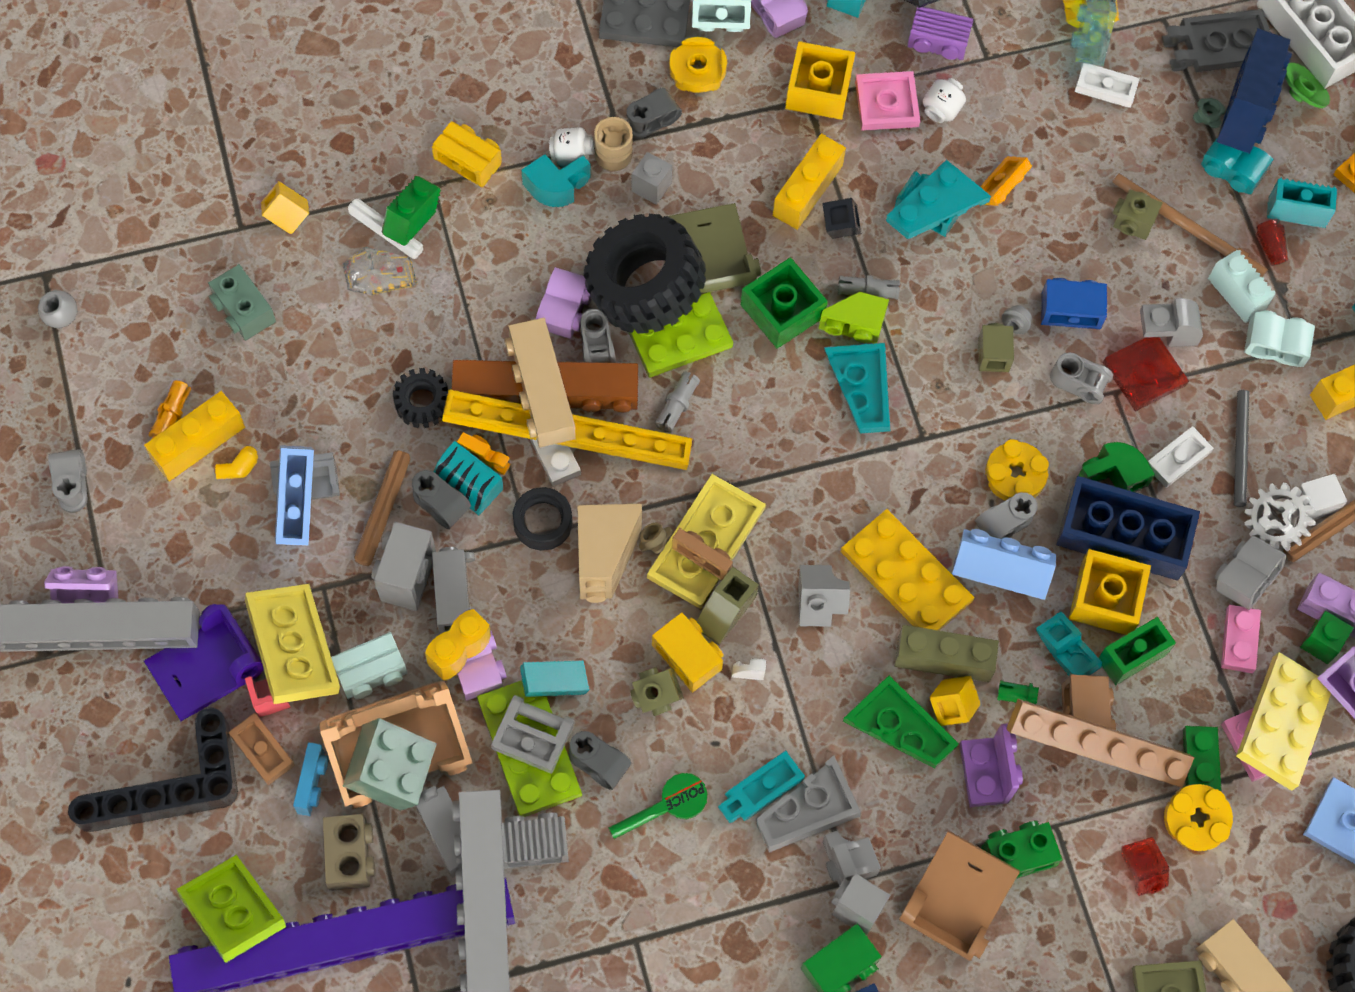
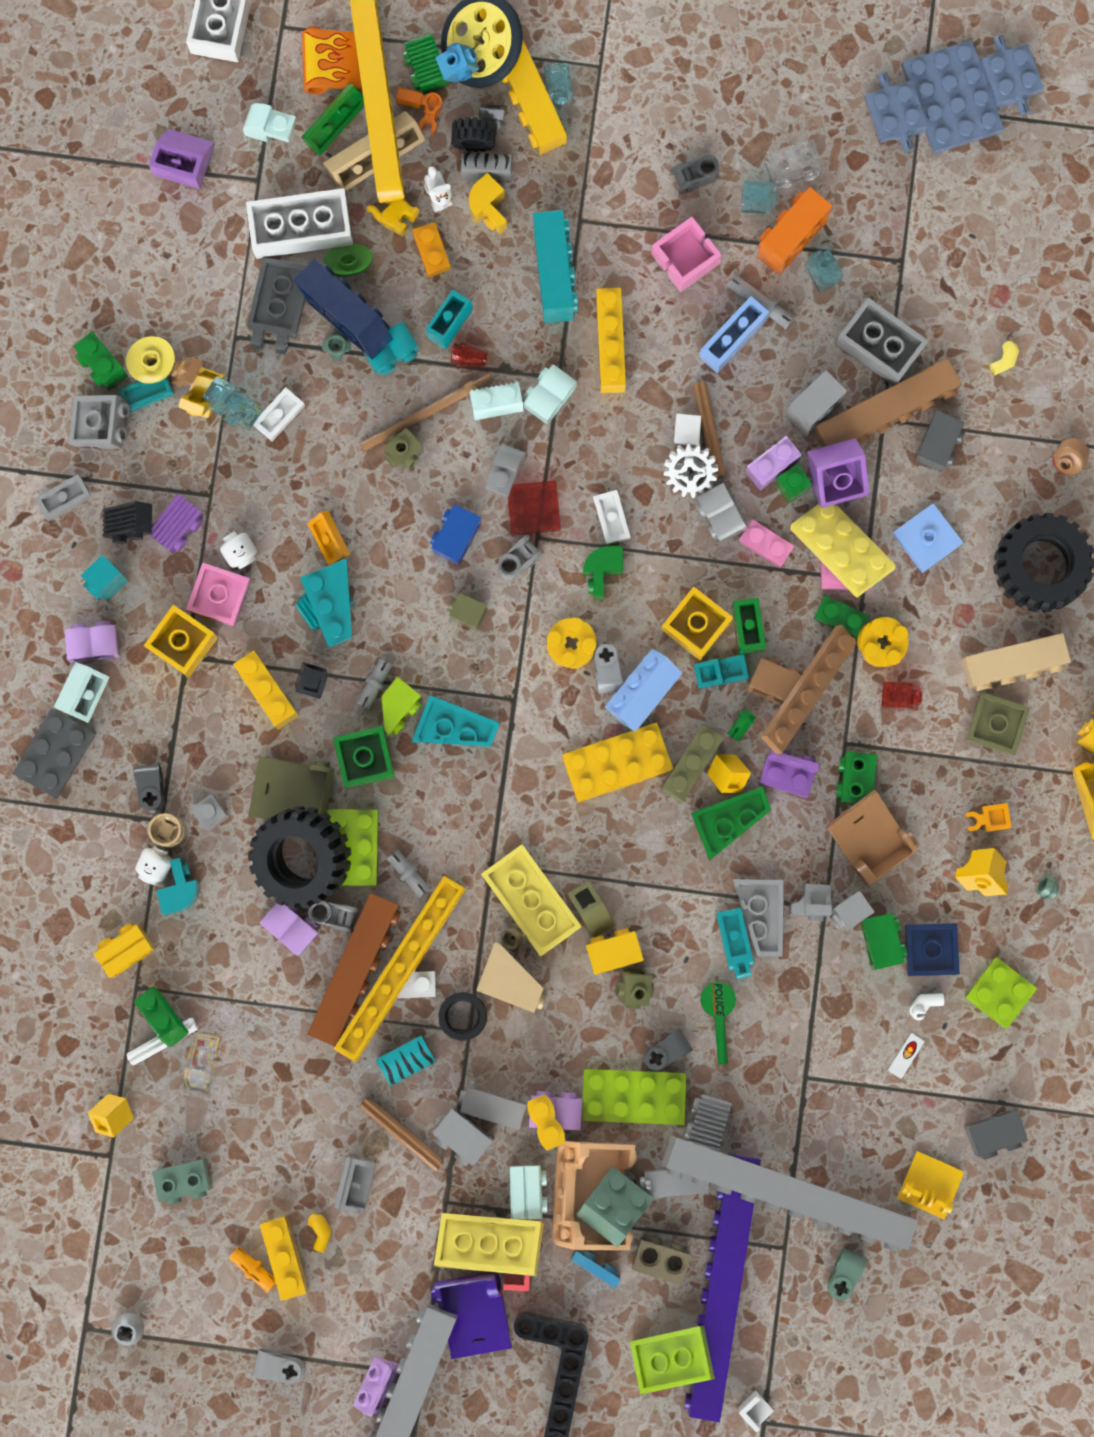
camera: 60 degrees left, 15 degrees up
(261, 749) = (557, 1295): medium nougat plate -> none
(294, 495) = (372, 1200): light blue brick -> none
(415, 382) = (308, 1074): black tyre -> none
(442, 502) = (419, 1086): dark grey piece -> none
(481, 449) = (385, 1043): light orange plate -> none
(529, 743) = (638, 1098): light grey plate -> none
(541, 383) = (359, 975): tan brick -> none
(554, 678) = (593, 1058): teal tile -> none
(693, 79) = (107, 737): yellow plate -> none
(693, 548) = (537, 915): medium nougat plate -> none
(754, 670) = (643, 912): white tile -> none
(821, 595) = (610, 835): light grey brick -> none
(1018, 318) = (450, 584): light grey plate -> none
(1128, 526) = (653, 585): dark blue brick -> none
(1241, 448) = (622, 466): dark grey bar -> none

